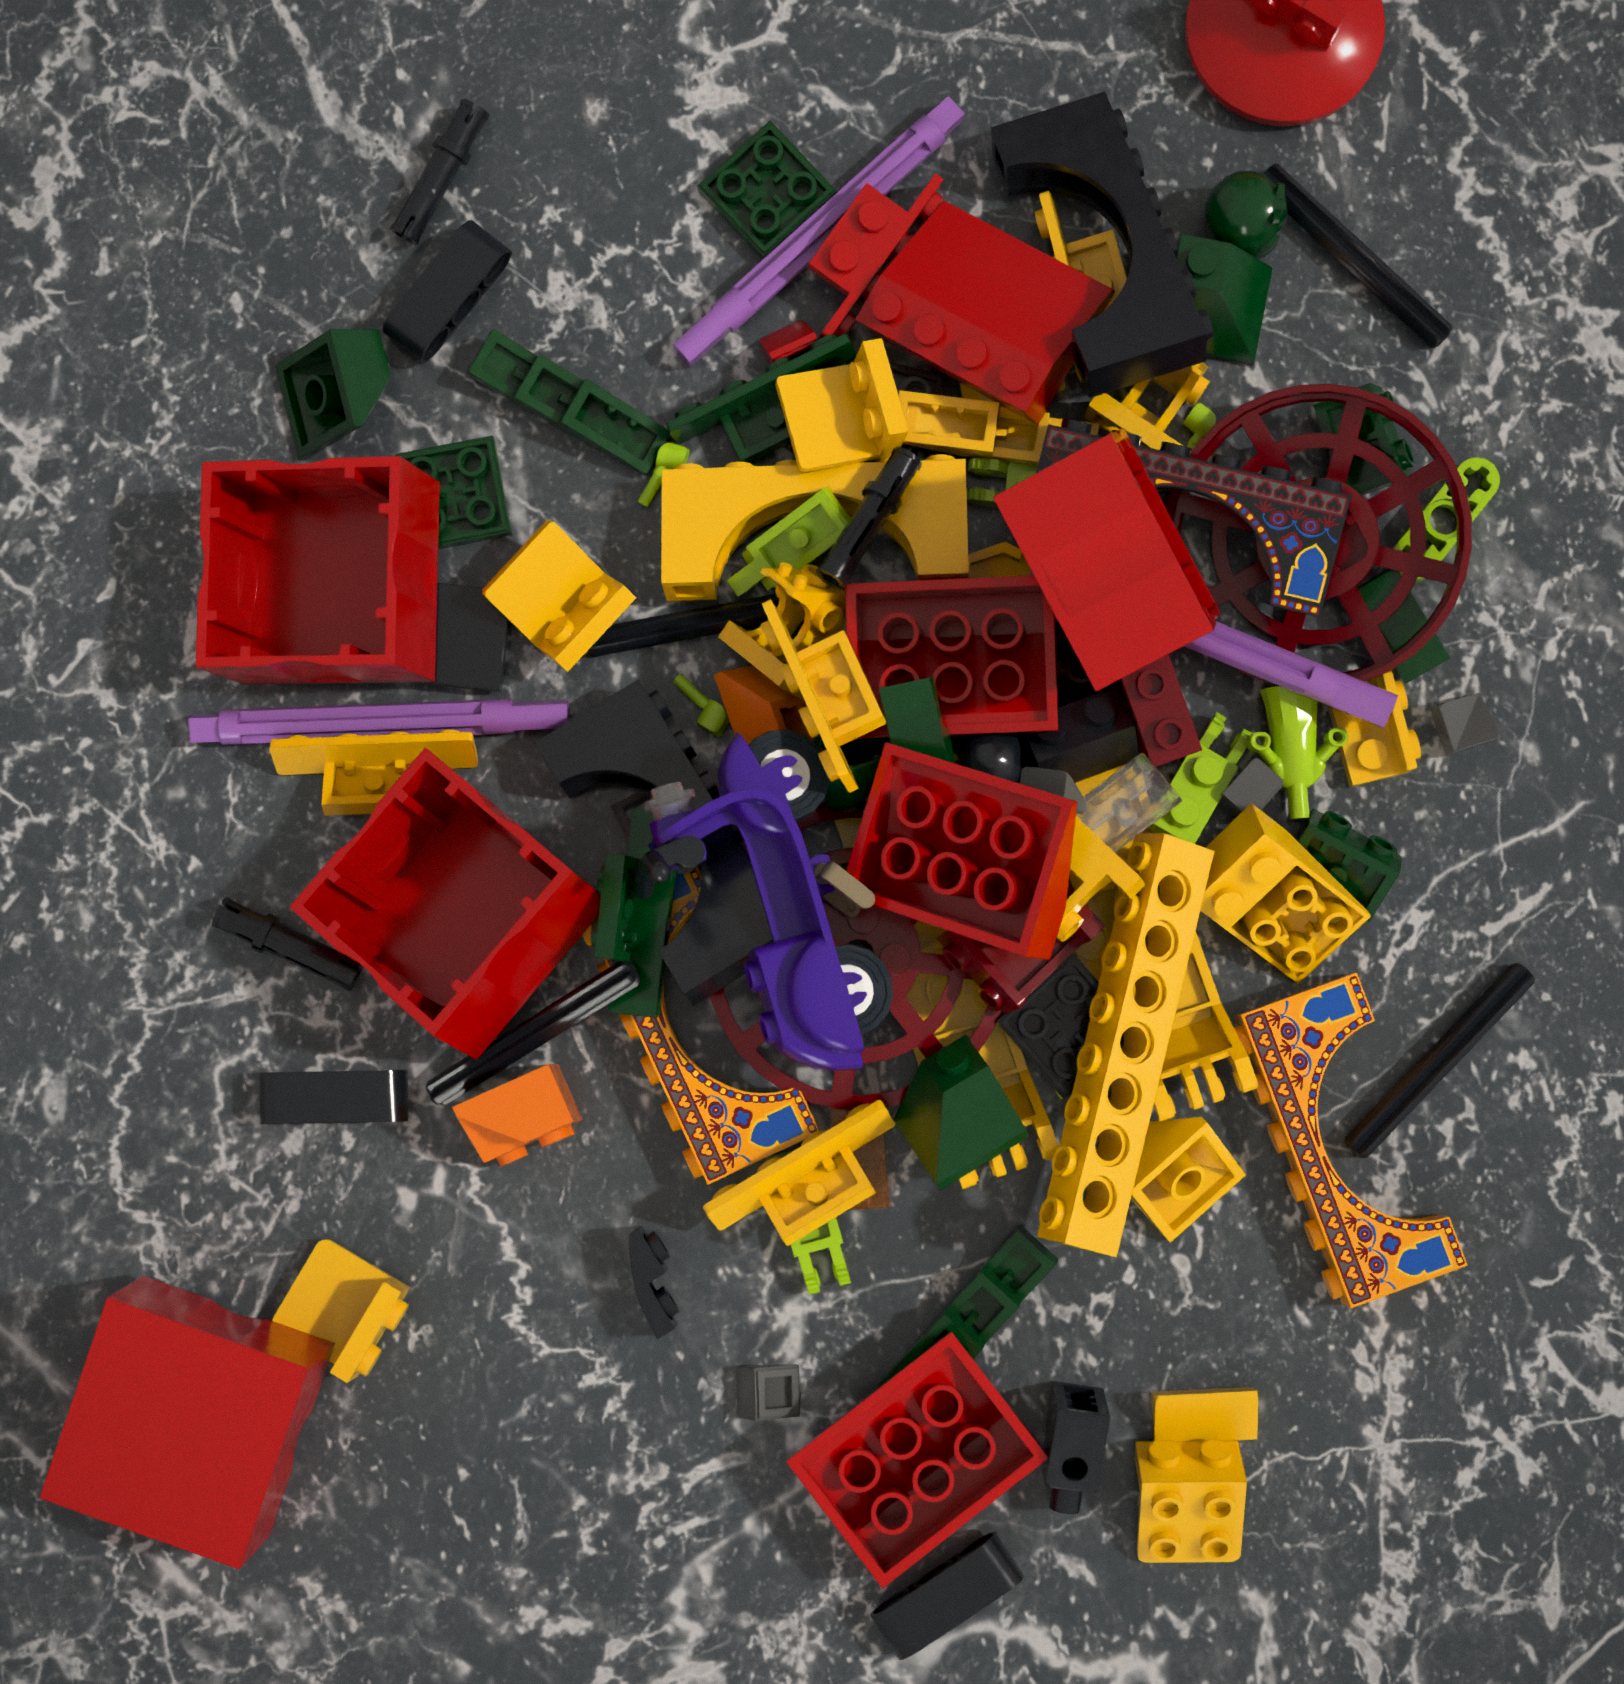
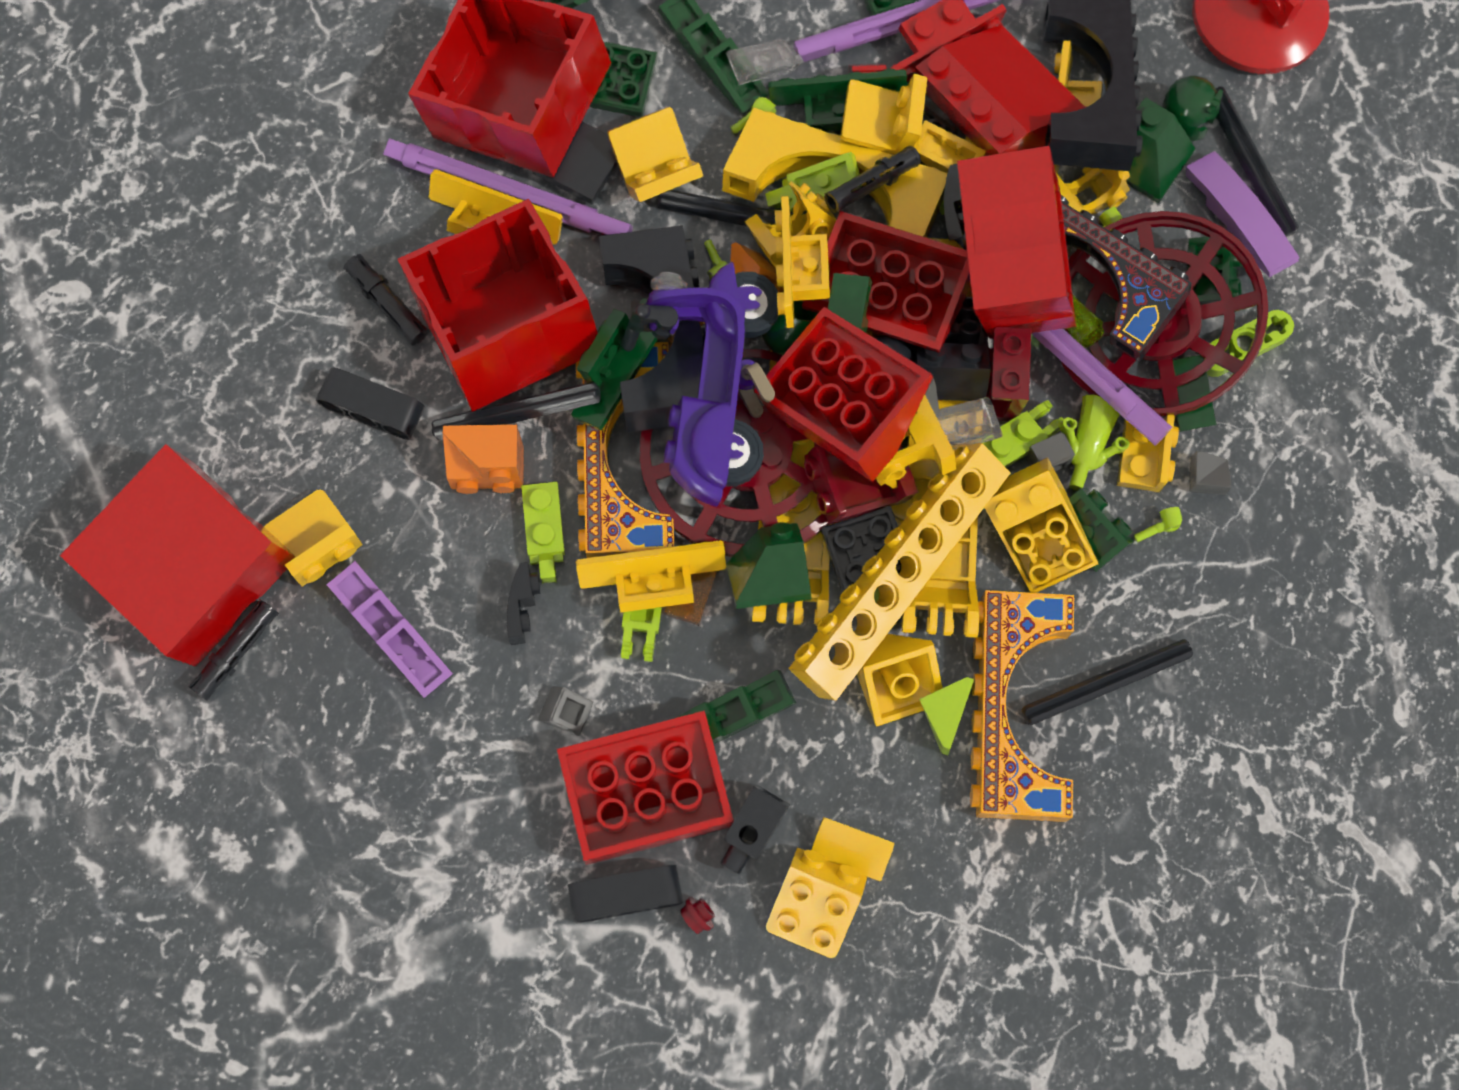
camera: 15 degrees right, 10 degrees down
(306, 1511) = (233, 650): none -> black pin
(496, 1385) = (389, 629): none -> medium lavender slope
(634, 1165) = (543, 527): none -> lime hinge
(643, 390) = (763, 61): none -> clear slope
(985, 481) = (953, 213): none -> black slope
(1048, 1583) = (697, 915): none -> dark red plate
(1229, 593) = (1088, 325): none -> clear neon green cone
(1253, 1190) = (945, 711): none -> lime slope
(1372, 341) = (1242, 213): none -> medium lavender slope
(1438, 809) = (1171, 521): none -> lime hand

